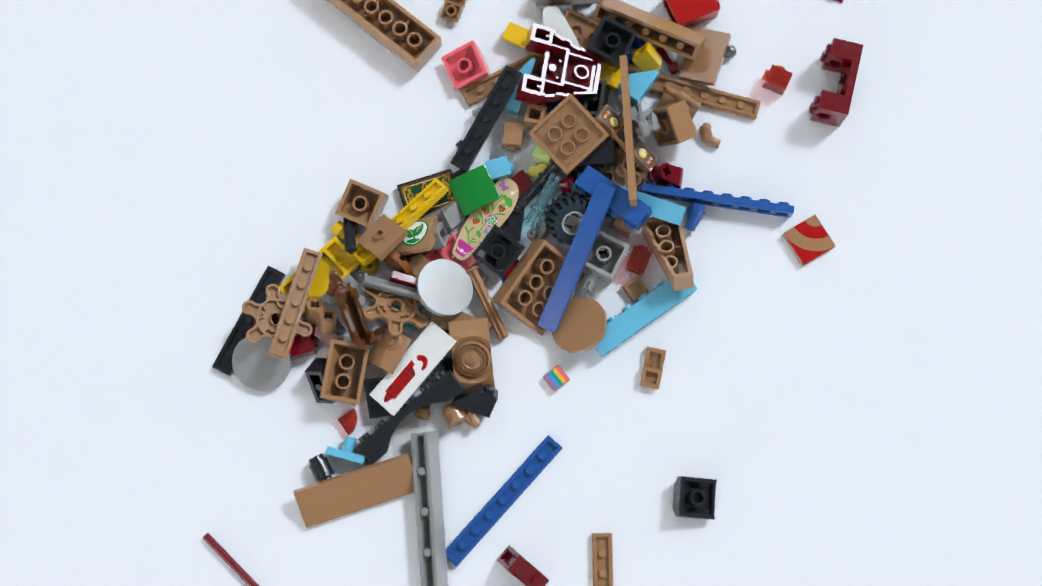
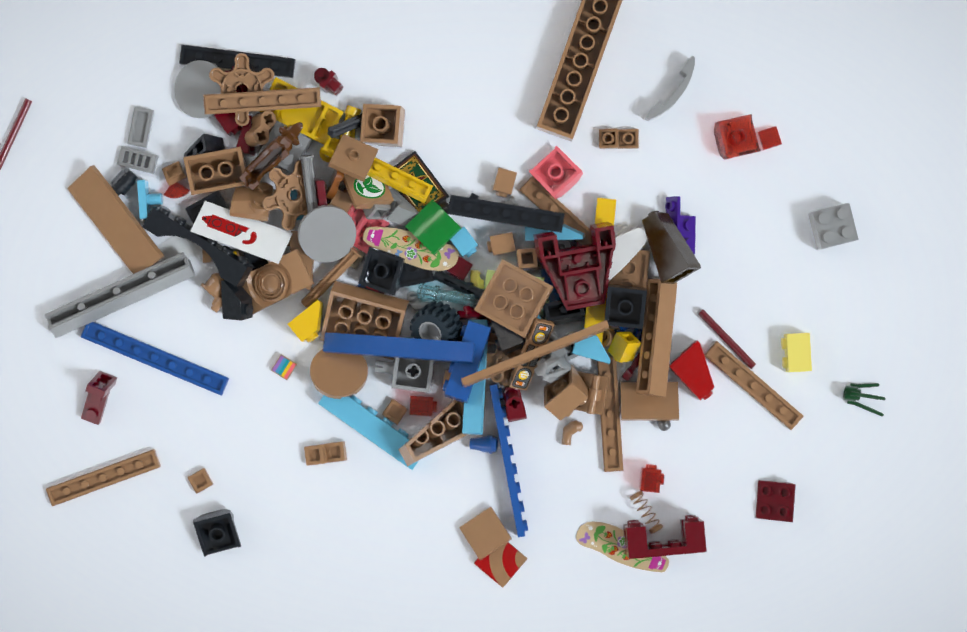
camera: 70 degrees right, 10 degrees up
(275, 434) = (140, 127): none -> light grey tile
(299, 445) = (152, 162): none -> light grey slope
(303, 237) = (328, 81): none -> dark red hips
(331, 417) = (173, 173): none -> medium nougat tile
(456, 114) = (504, 182): none -> medium nougat brick
(523, 336) = (308, 322): none -> yellow slope
(638, 498) = (200, 480): none -> medium nougat tile
(779, 243) = (485, 533): none -> medium nougat tile
(787, 96) = (655, 528): none -> medium nougat piece
(822, 137) = (610, 542): none -> tan sticker

